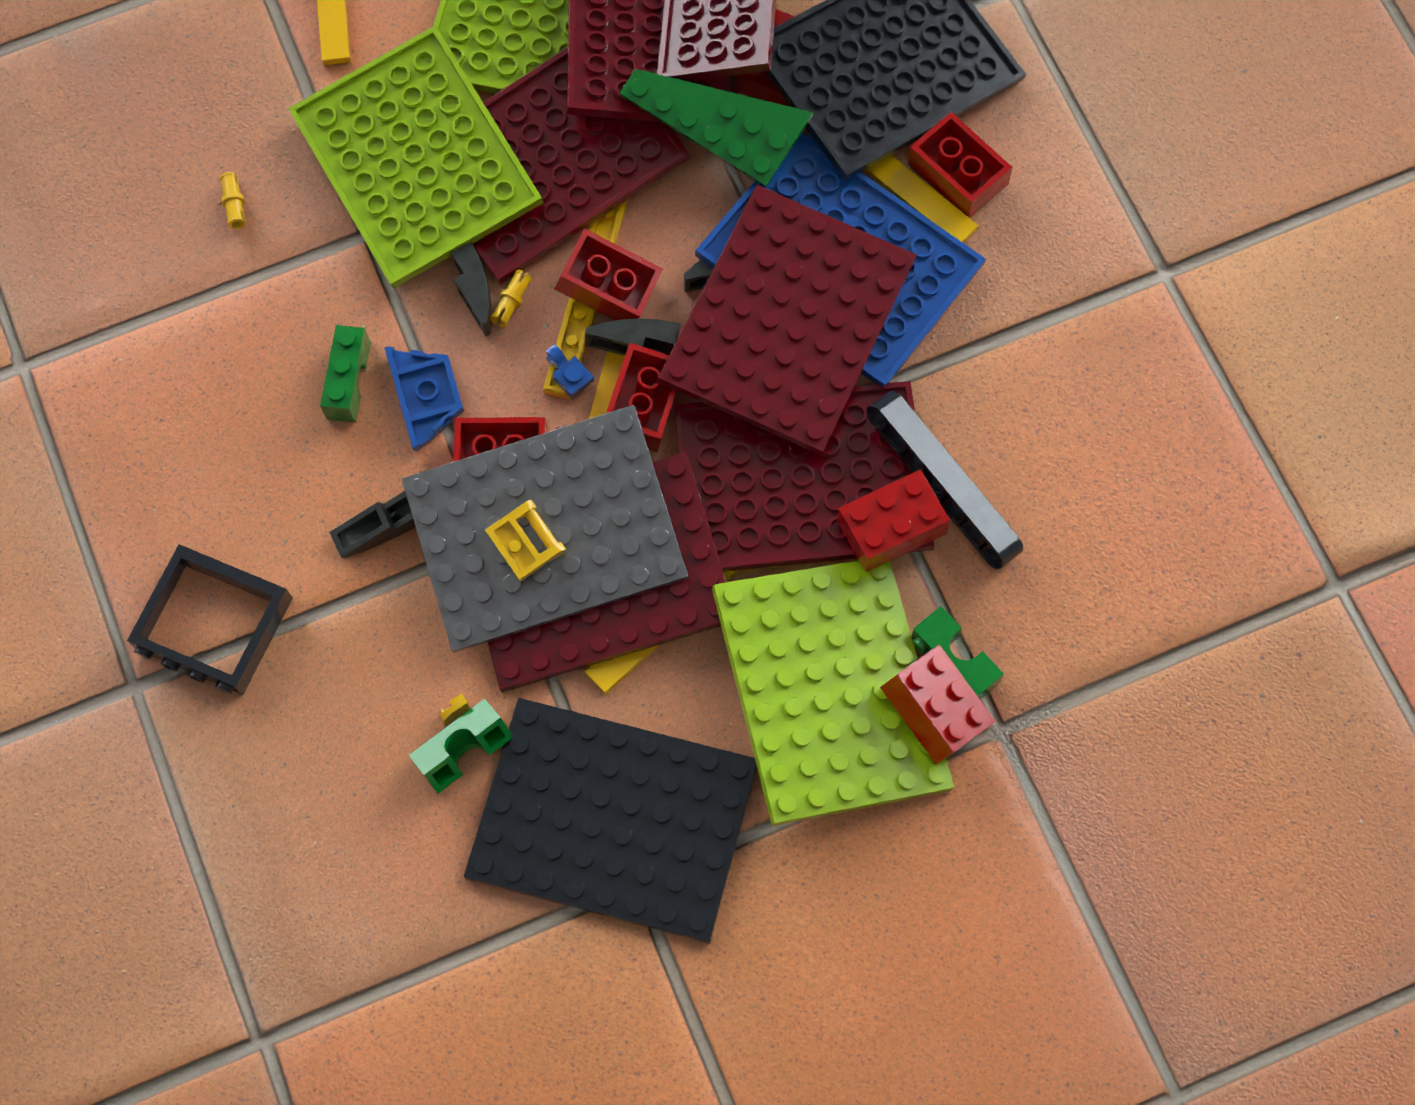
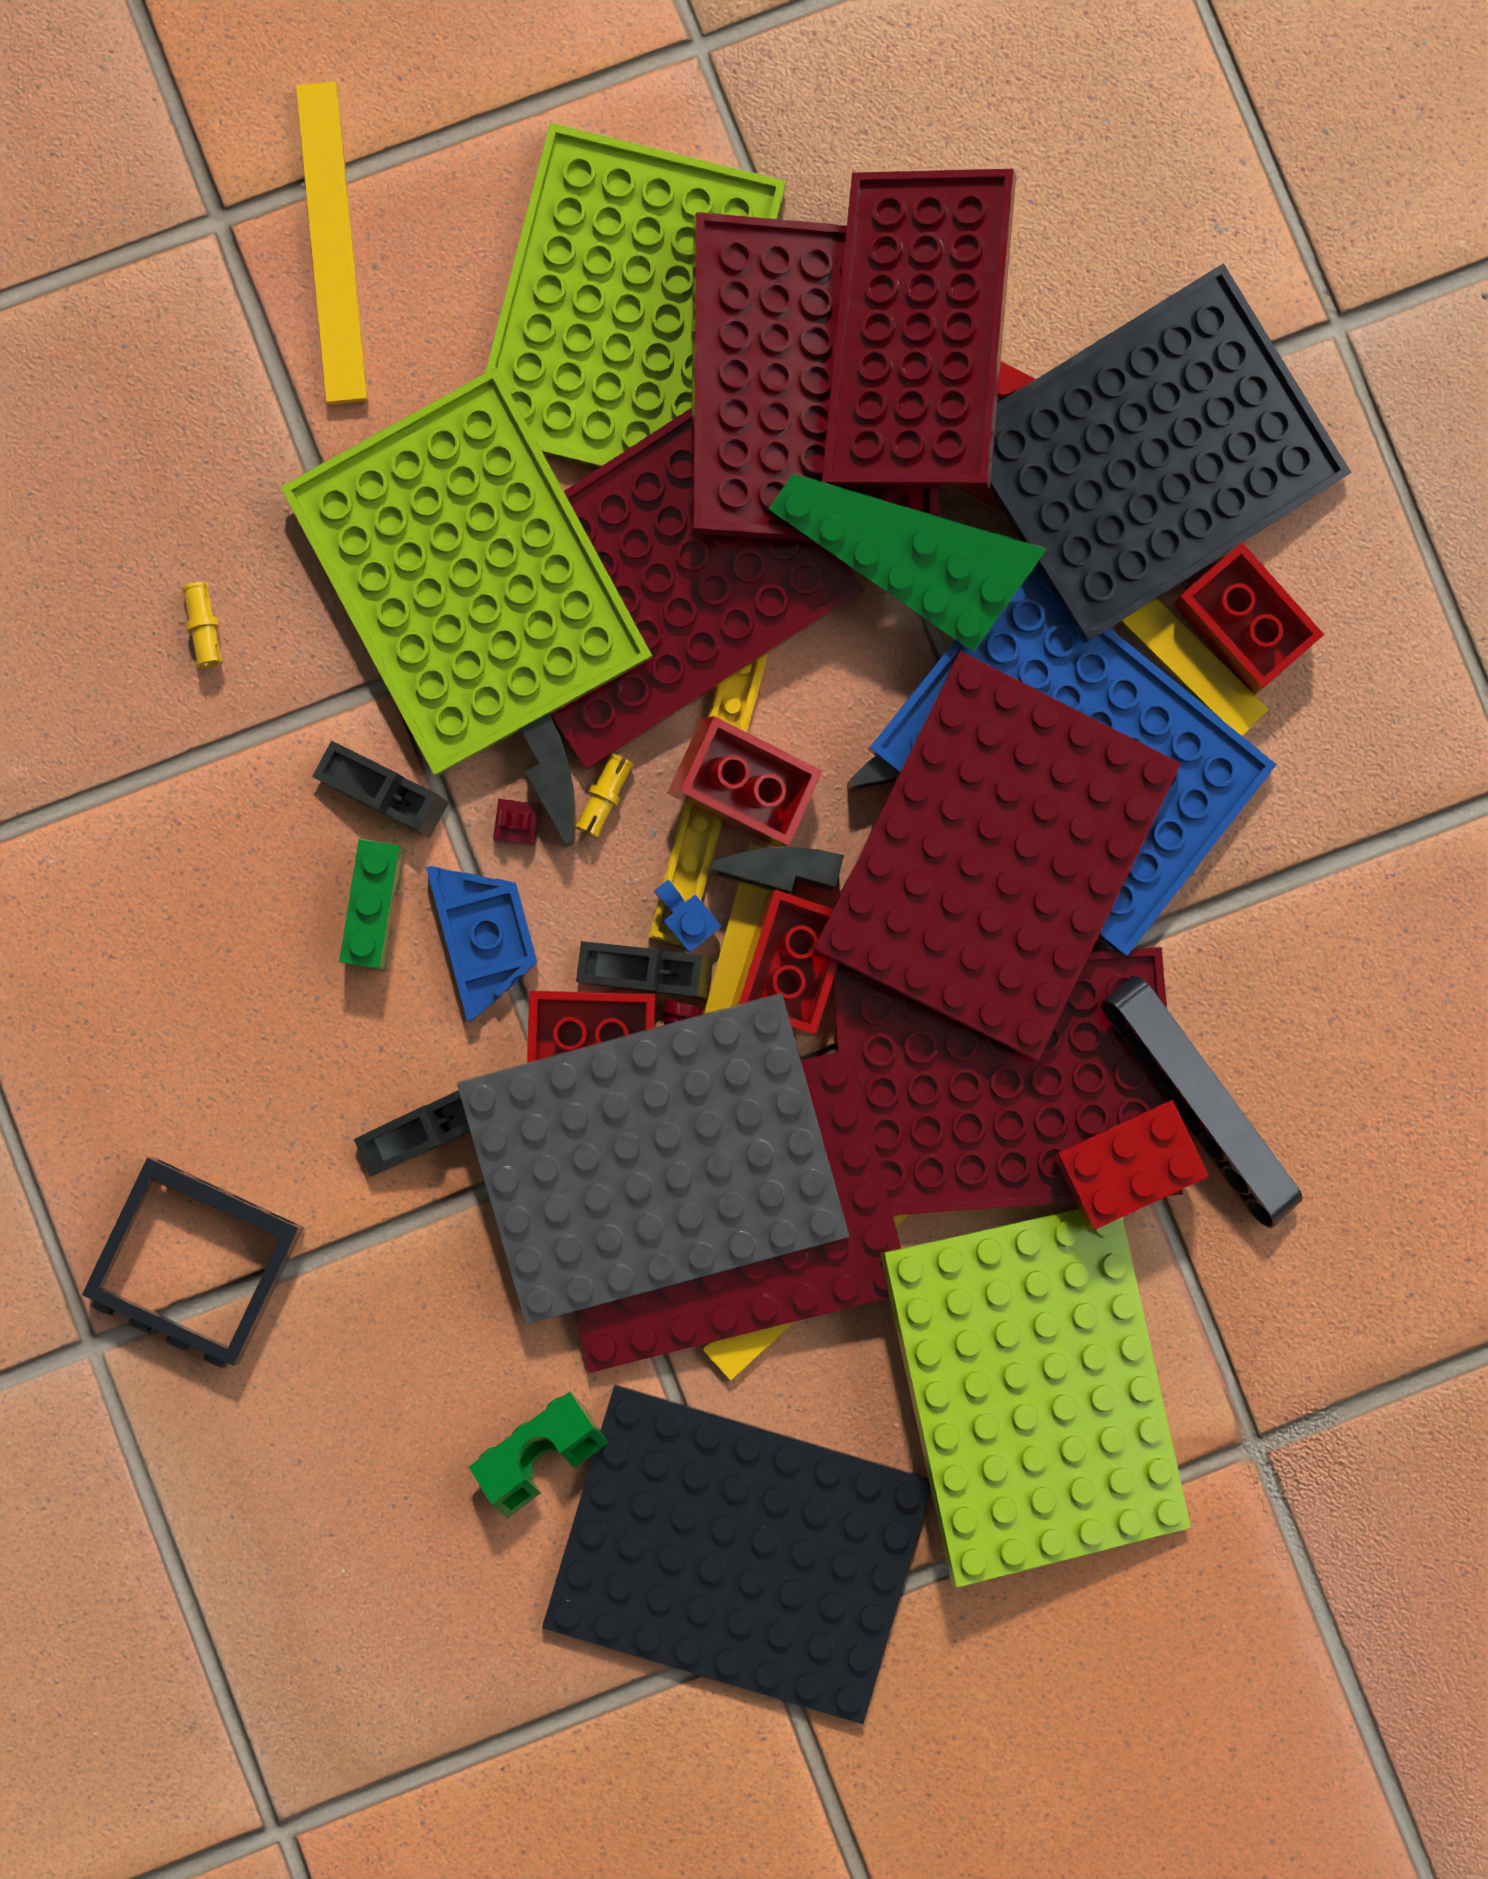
camera: 10 degrees left, 15 degrees up
(354, 300) = (380, 789): none -> pearl dark grey slope
(449, 319) = (516, 822): none -> dark red tile
(458, 708) = (528, 1398): yellow tile -> none
(517, 547) = (617, 1193): yellow plate -> none
(557, 409) = (644, 969): none -> pearl dark grey slope
(937, 704) = (1177, 1425): brick -> none
(942, 629) = (1225, 1379): green arch -> none

